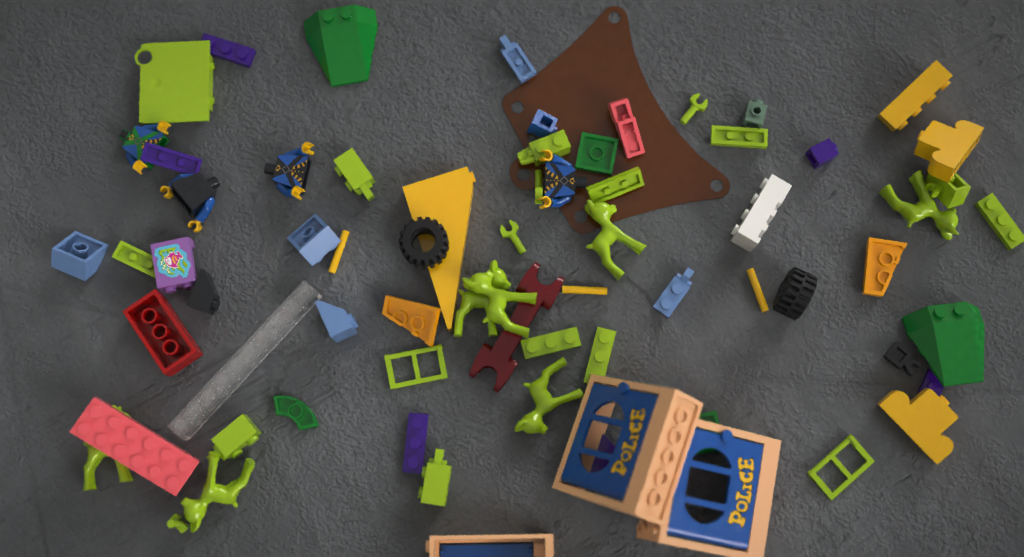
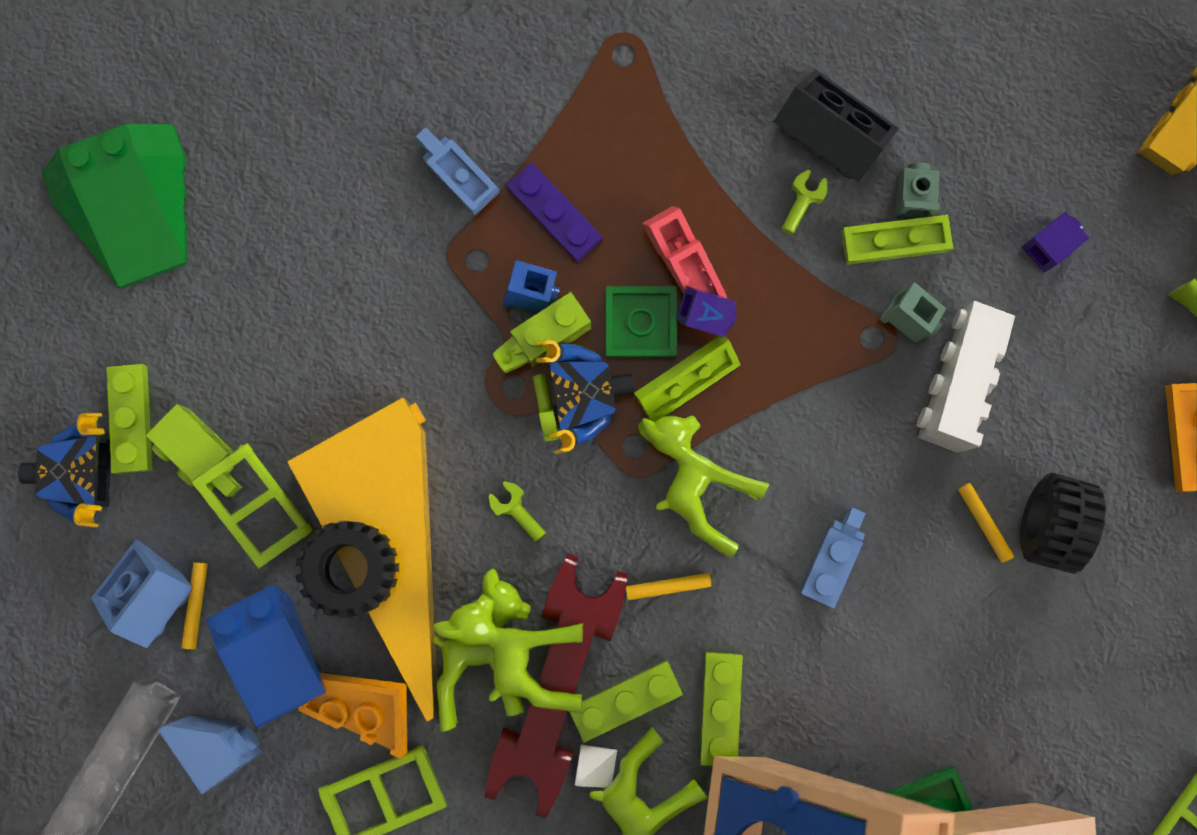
camera: 15 degrees left, 5 degrees up
(324, 152) = (129, 419): none -> lime plate
(367, 211) = (231, 521): none -> lime window
(372, 280) = (266, 654): none -> blue slope
(528, 372) = (595, 766): none -> white slope
(562, 90) = (554, 212): none -> dark purple plate
(631, 153) = (707, 311): none -> dark purple brick
(717, 73) = (835, 125): none -> black slope
(740, 175) = (914, 313): none -> sand green brick

